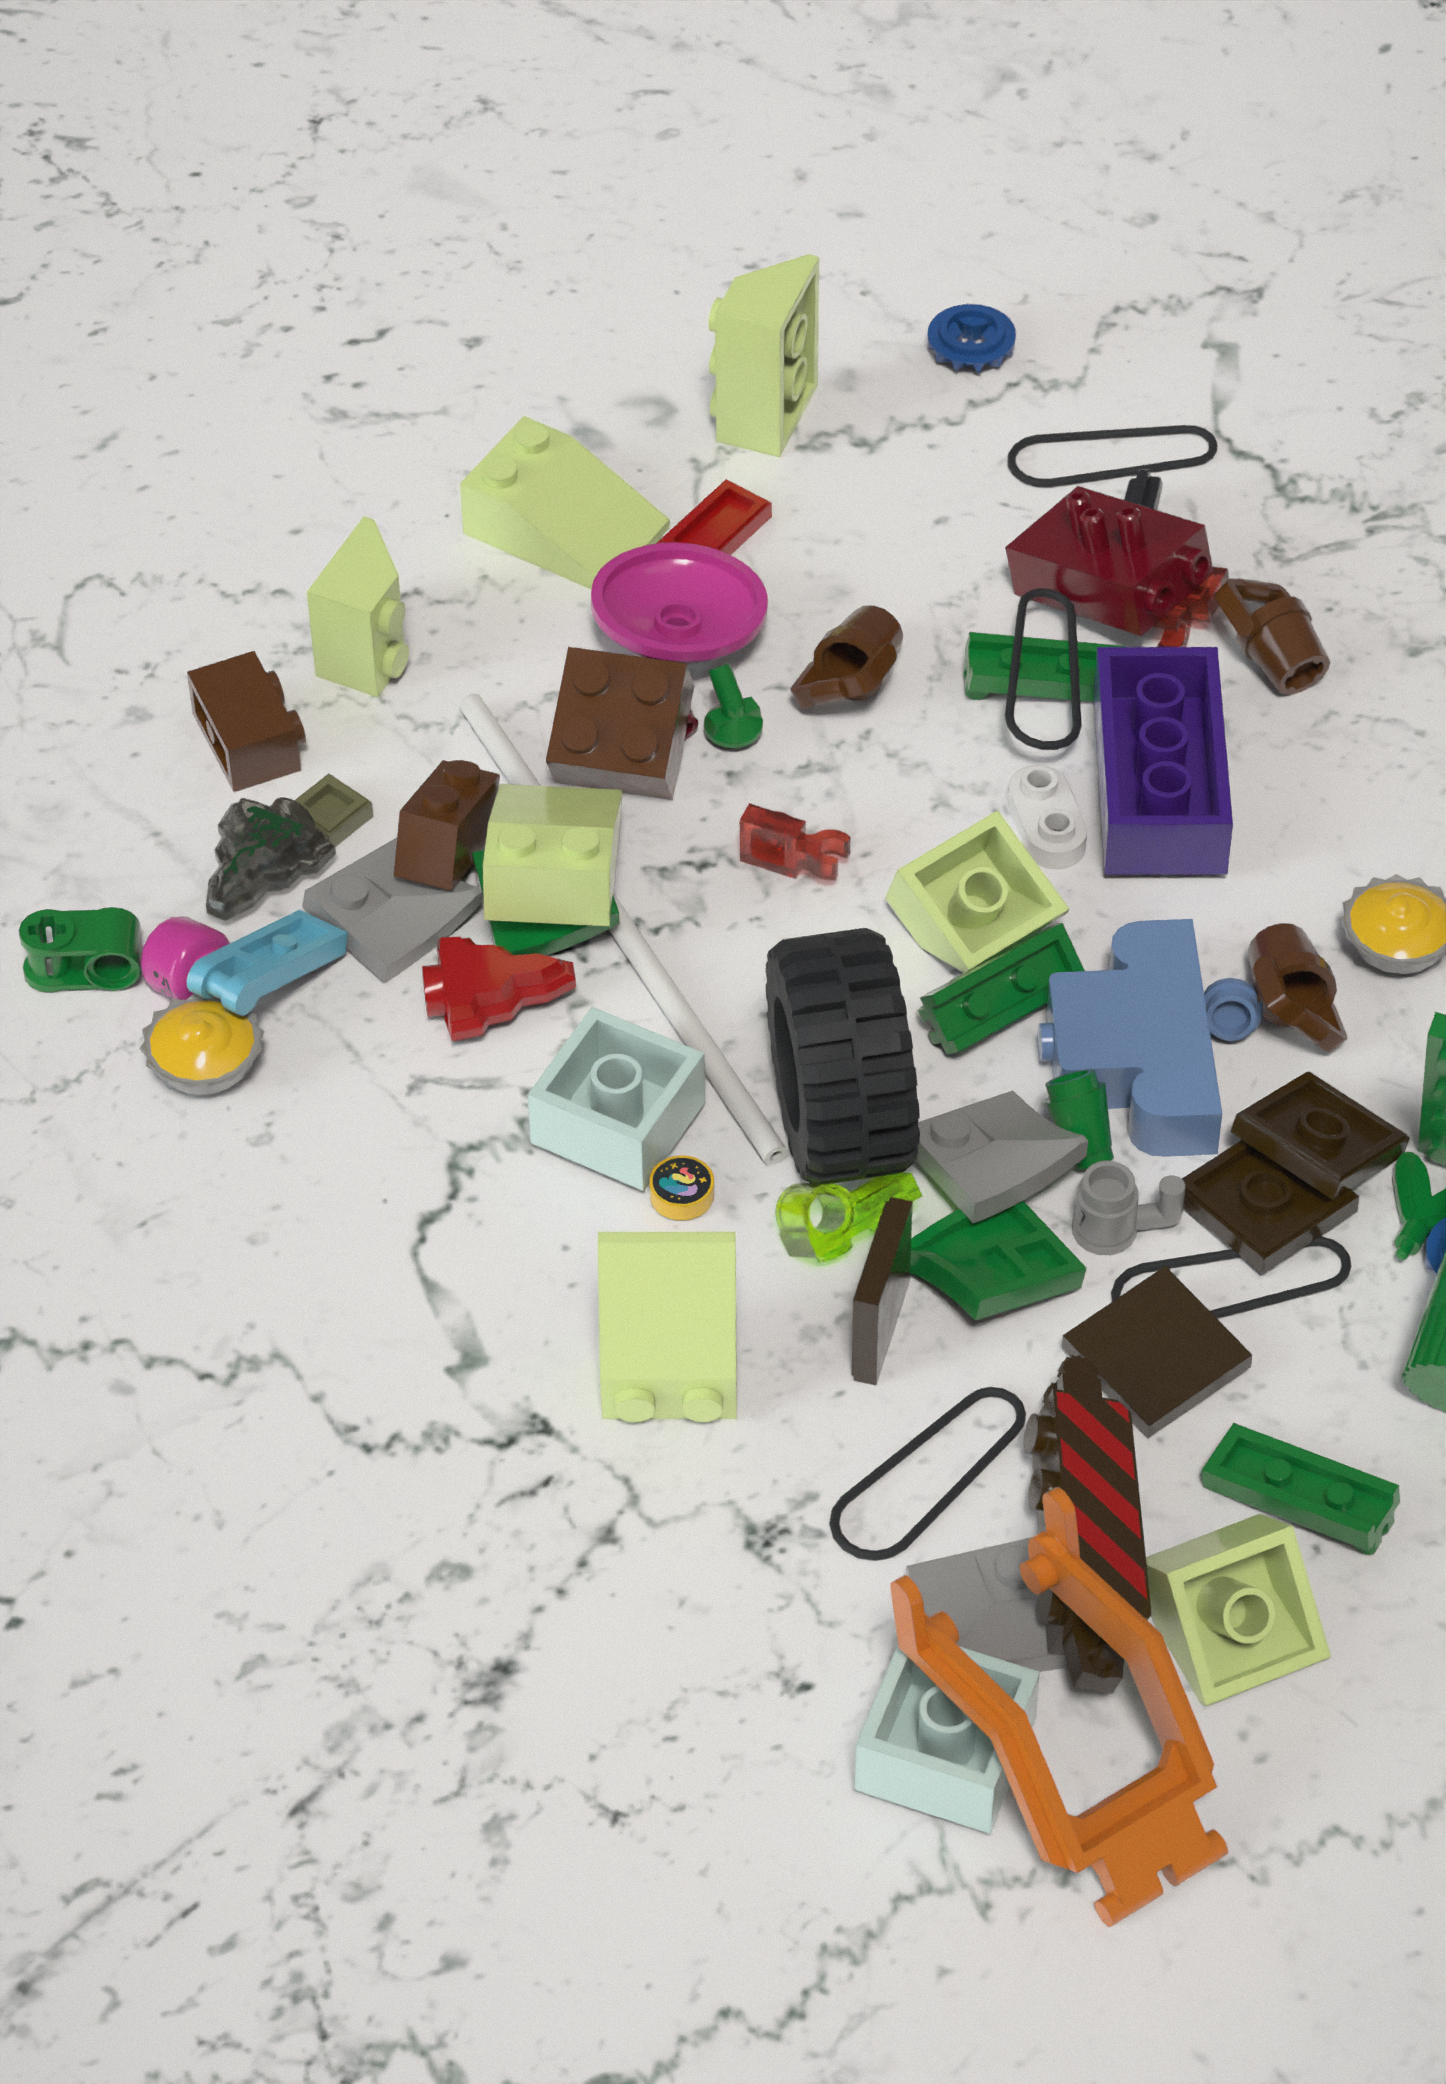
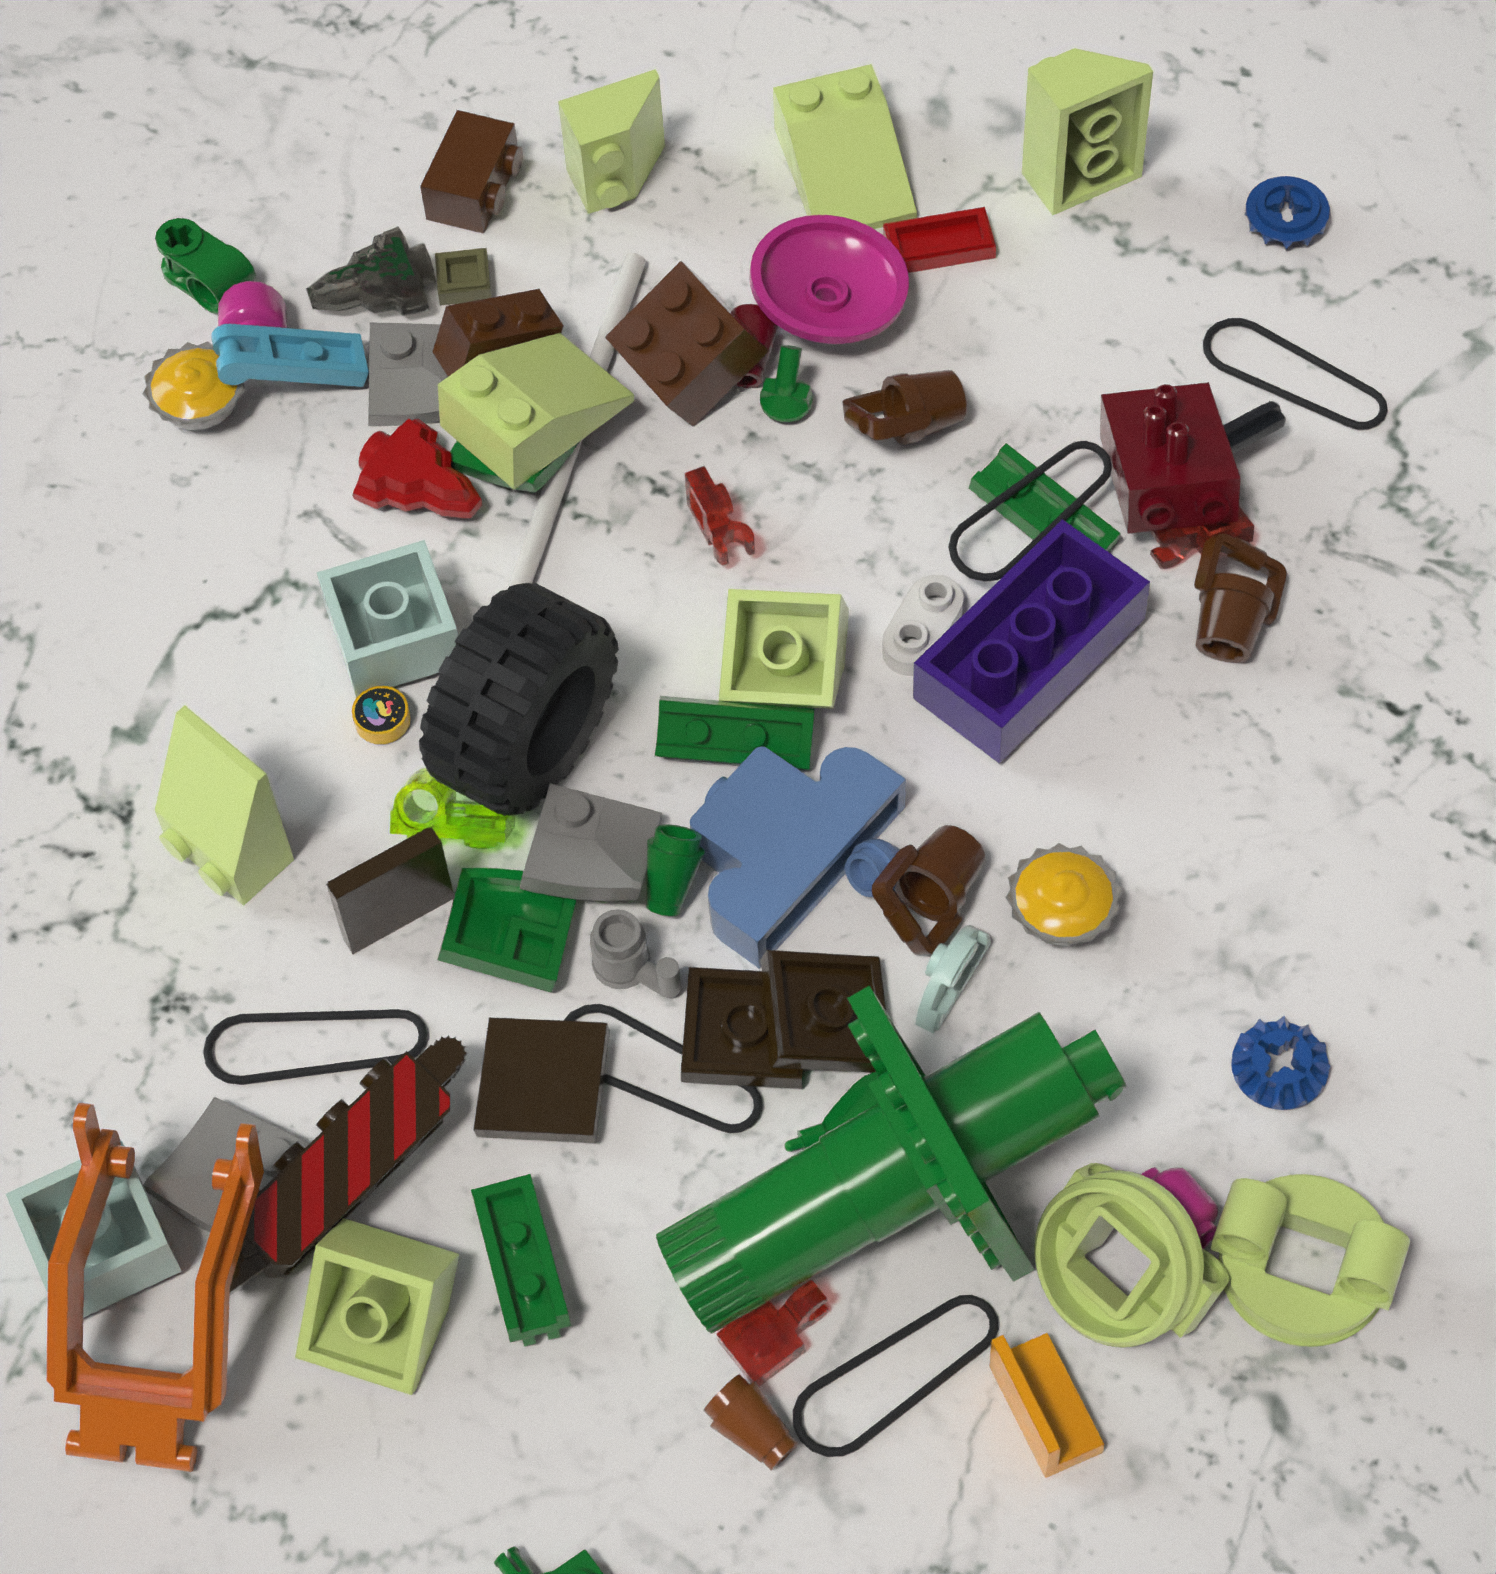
camera: 45 degrees right, 10 degrees up
(1371, 1034) = (949, 973): none -> light aqua plate

